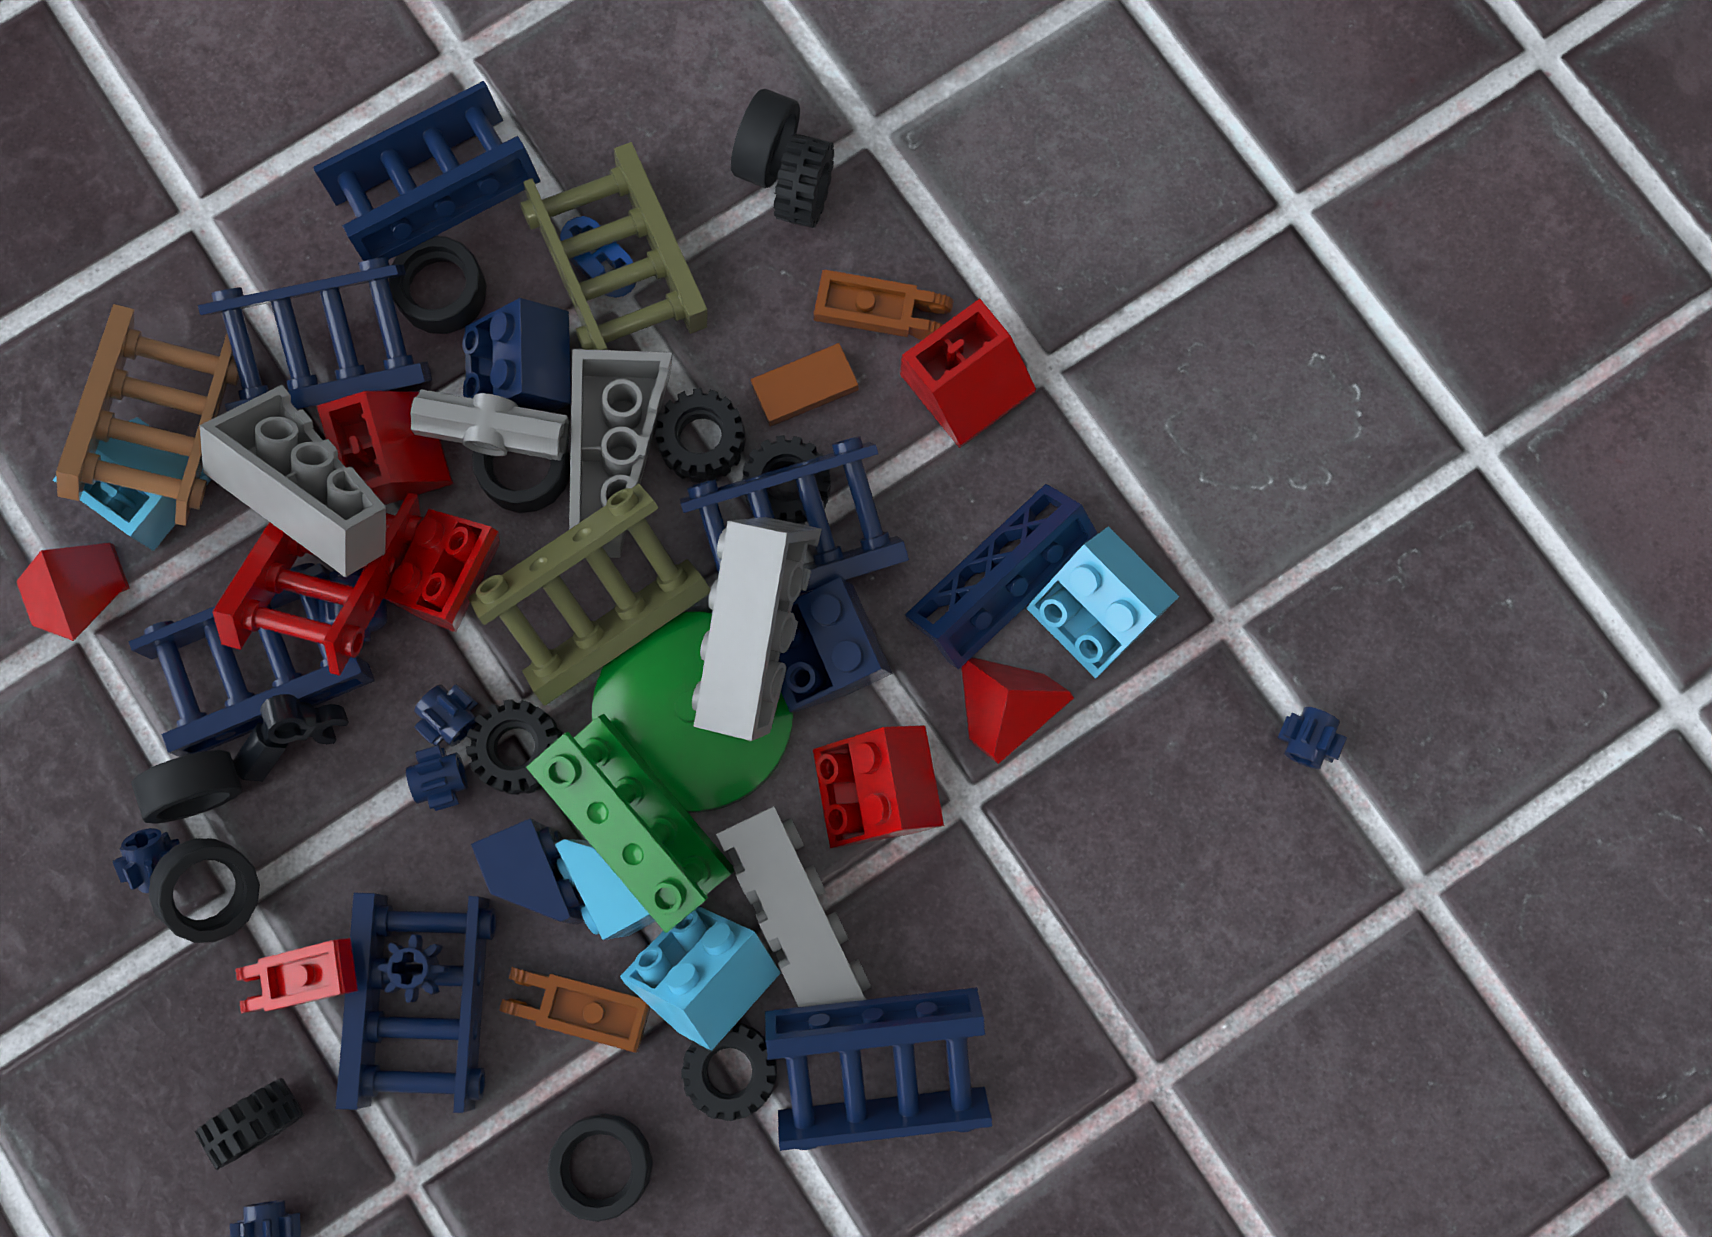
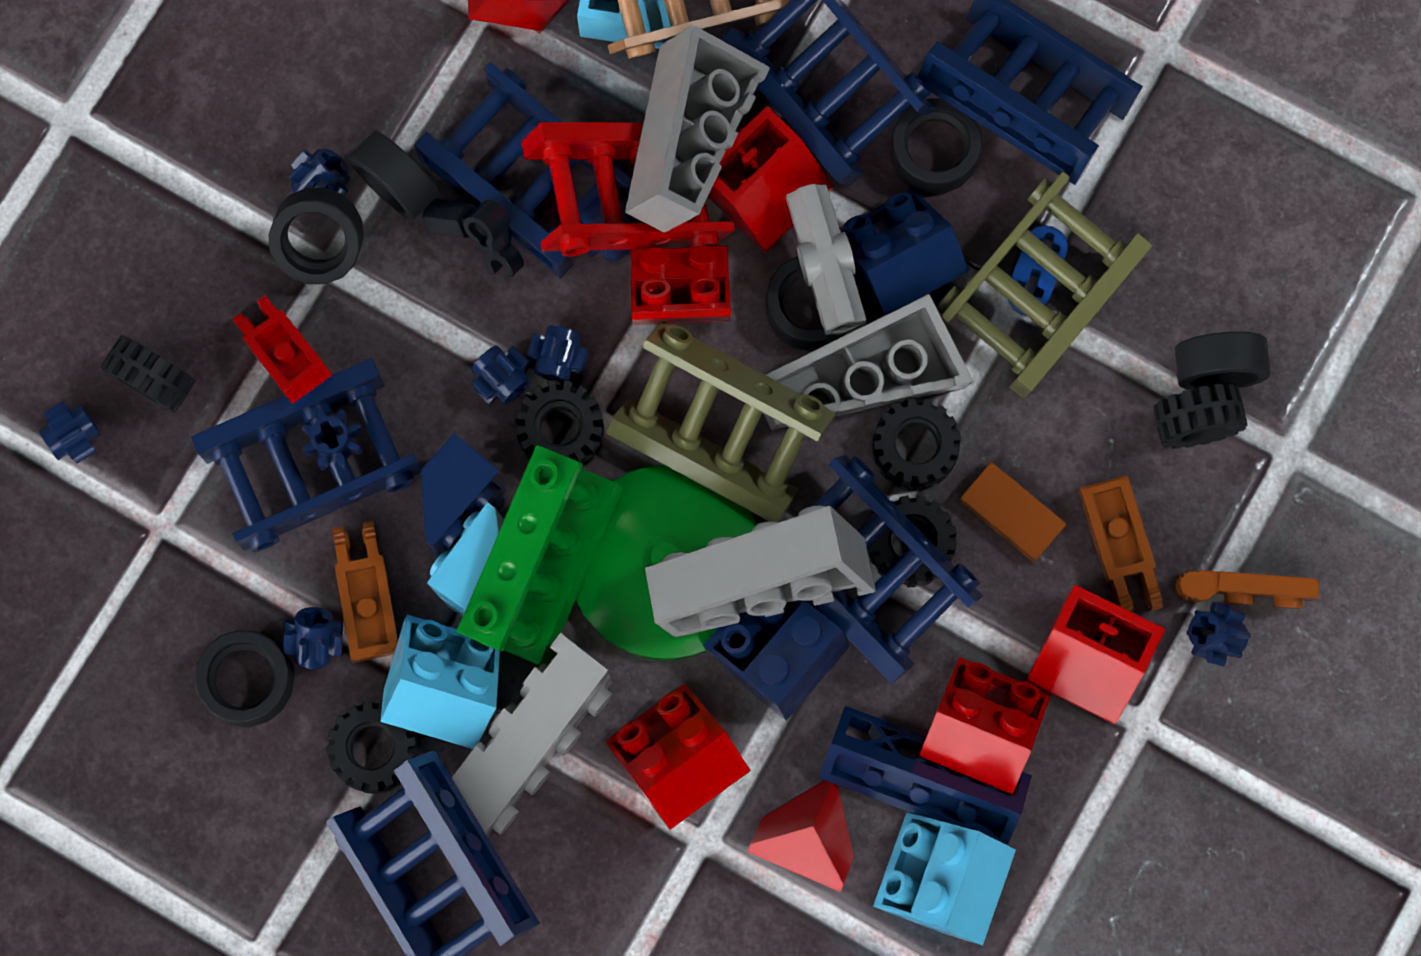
camera: 65 degrees right, 0 degrees up
(595, 1080) = (313, 637): none -> dark blue gear
(970, 224) = (1243, 587): none -> dark orange hinge
(984, 498) = (985, 725): none -> red slope
(990, 257) = (1218, 633): none -> dark blue gear

